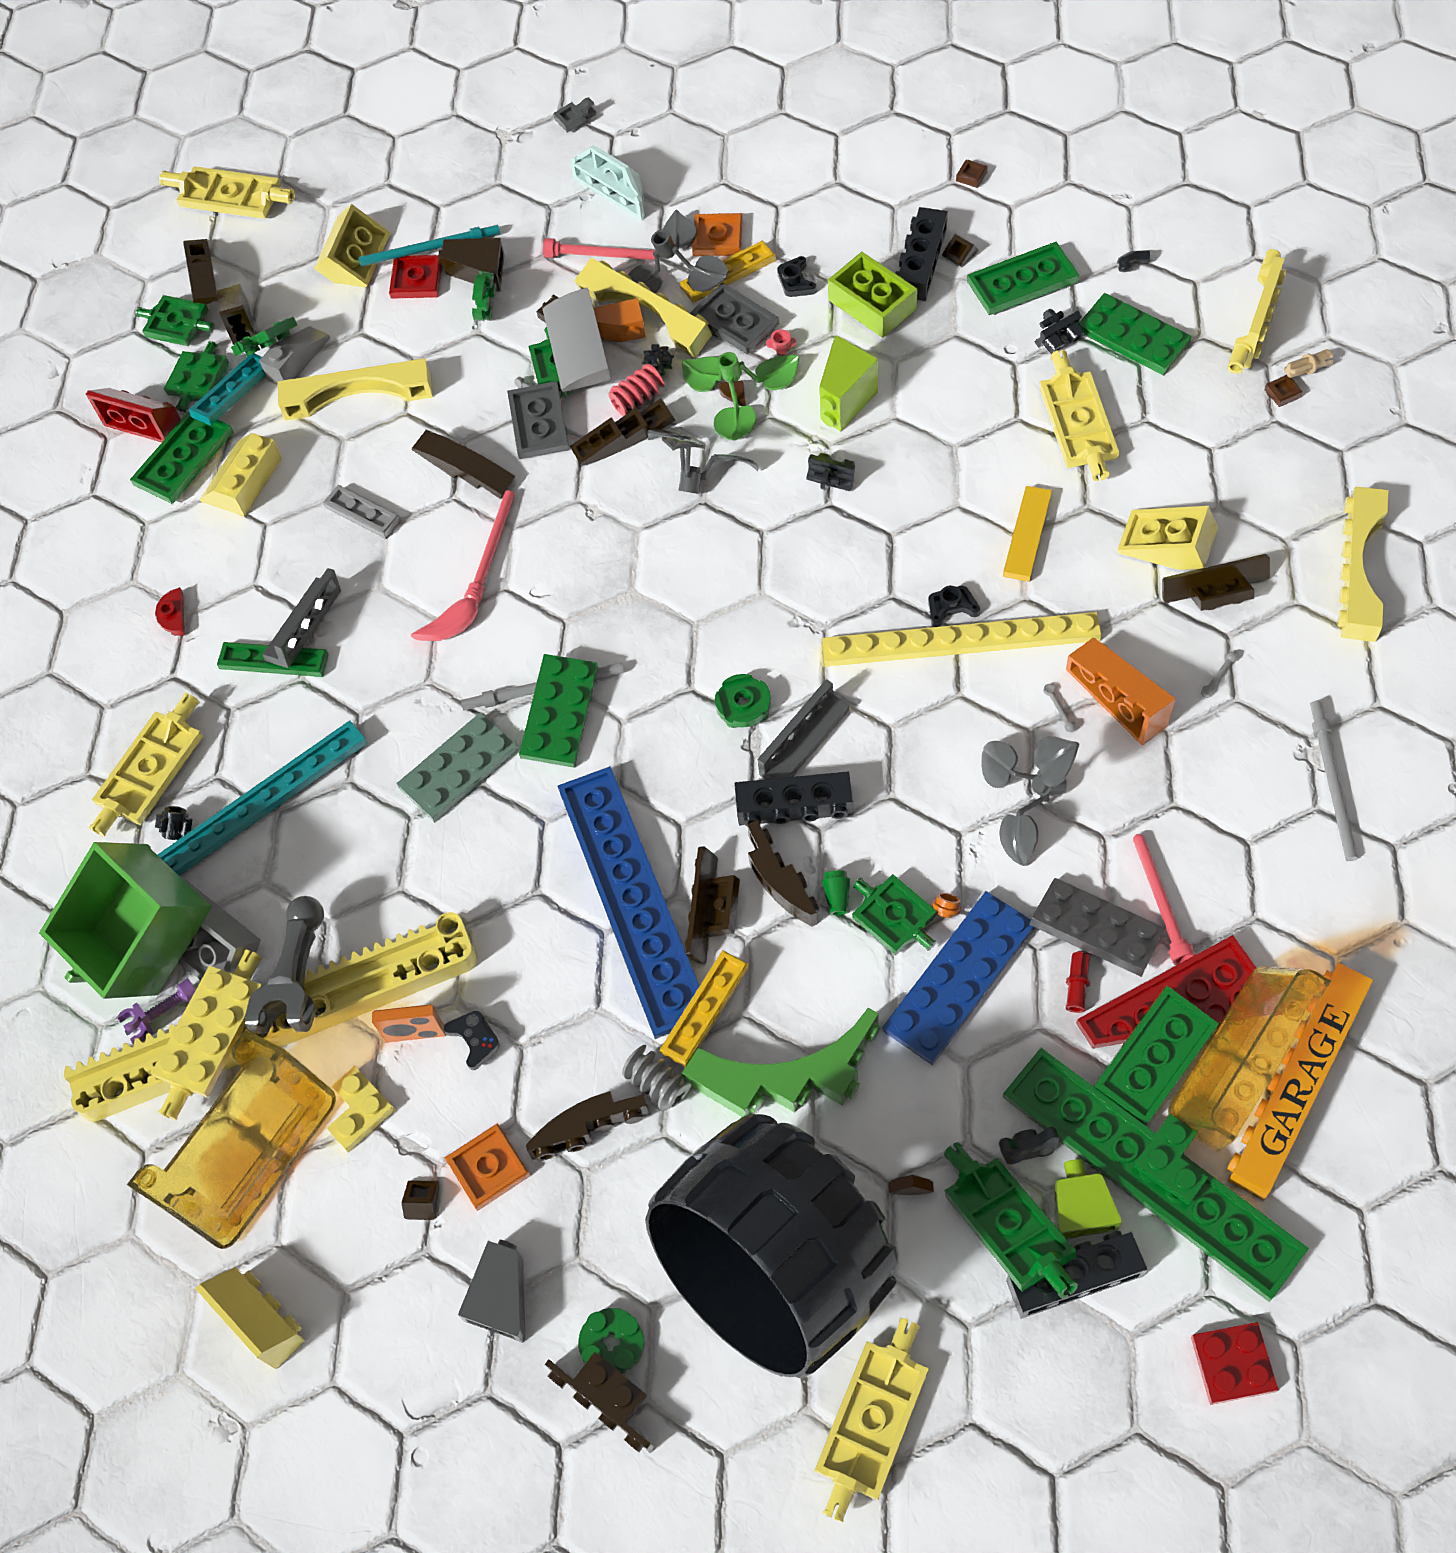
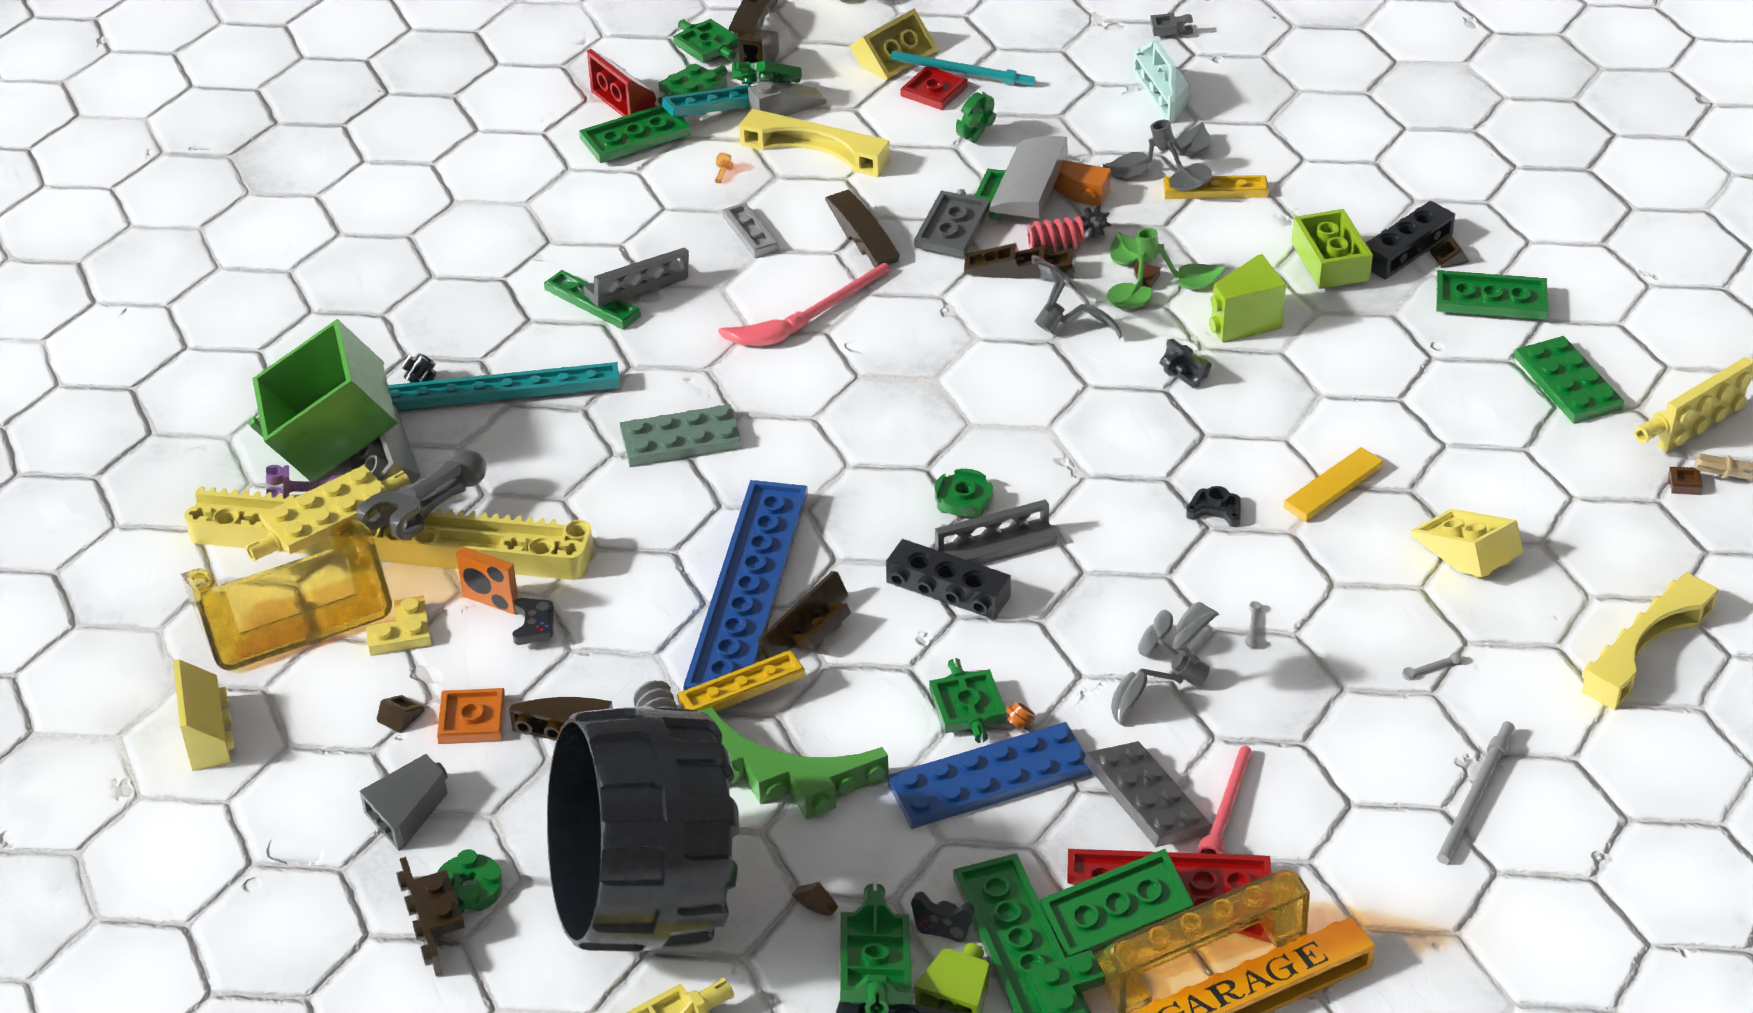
camera: 25 degrees right, 20 degrees down
(147, 767) = (435, 324): light yellow plate -> none
(170, 612) = (538, 233): red plate -> none
(243, 474) = (674, 164): light yellow slope -> none
(287, 448) = (723, 161): none -> clear orange hand
(467, 256) = (1007, 91): dark brown slope -> none
(490, 698) = (748, 399): light grey bar -> none
(553, 248) = (1069, 110): coral piece -> none
(558, 710) = (797, 430): green plate -> none
(606, 285) = (1134, 204): light yellow arch -> none
(718, 234) = (1229, 156): orange tile -> none
(736, 318) = (1191, 220): dark grey plate -> none
(780, 880) = (887, 627): dark brown slope -> none
(781, 341) = (1220, 254): coral plate -> none
(792, 279) = (1271, 213): black piece -> none
(836, 889) = (931, 660): green cone -> none
(960, 639) = (1205, 535): light yellow plate -> none
(971, 173) = (1510, 201): reddish brown tile -> none
(1051, 336) = (1492, 342): black hips -> none
(1077, 982) = (1094, 826): red axle -> none
(1078, 418) = (1456, 417): light yellow plate -> none
(1122, 690) = (1319, 631): orange wedge -> none
(1132, 257) = (1620, 322): black arm -> none
(1218, 584) = (1487, 592): dark brown bracket -> none

